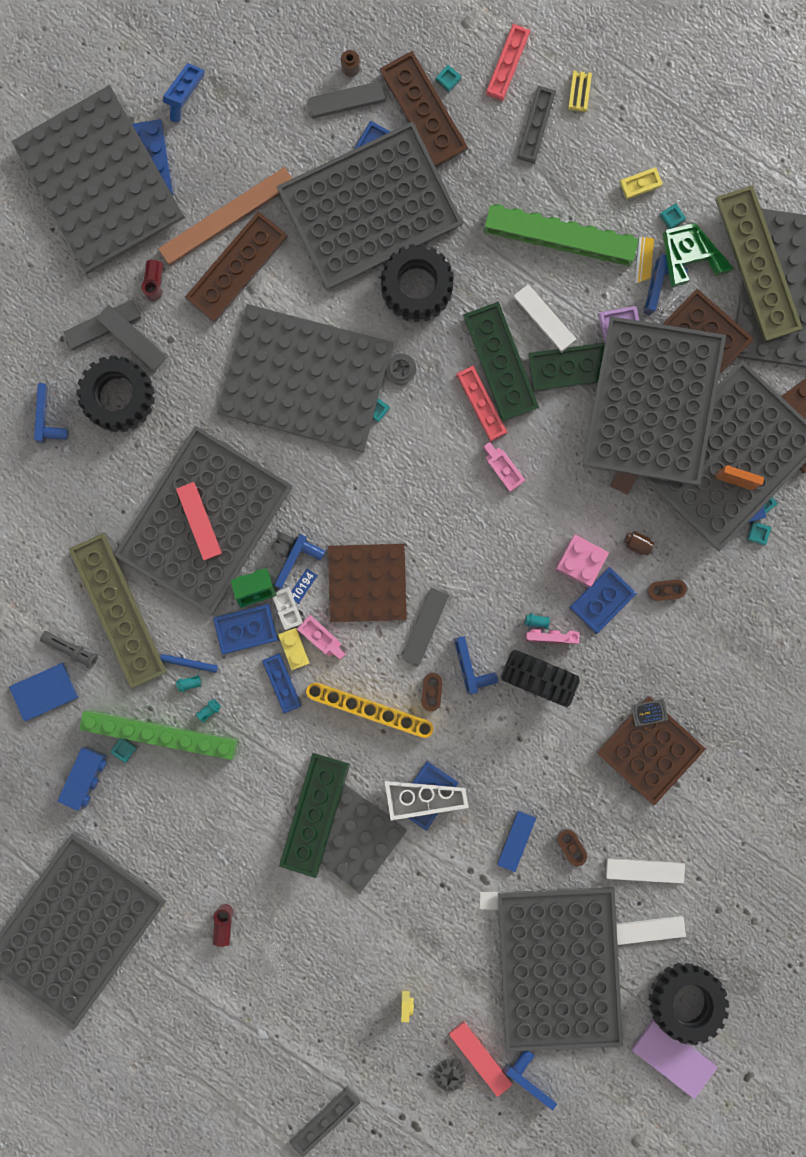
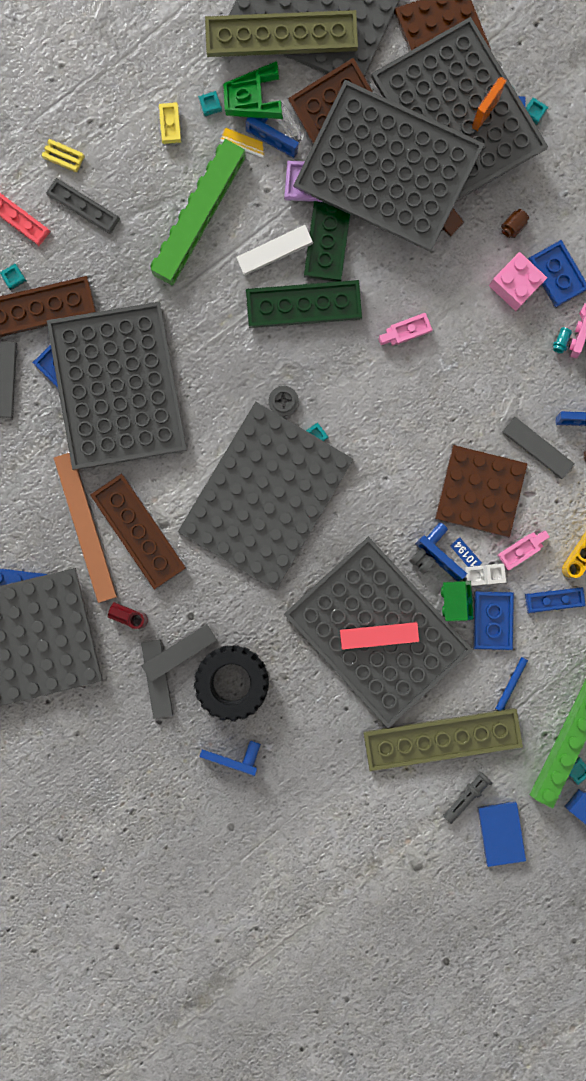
camera: 75 degrees left, 0 degrees up
(188, 683) = (532, 690): teal pin -> none
(206, 712) = (563, 677): teal pin -> none
(294, 648) = (525, 579): light yellow plate -> none
(423, 259) = (201, 336): black tyre -> none
(481, 403) = (338, 334): coral tile -> none
(666, 590) = (566, 212): reddish brown plate -> none

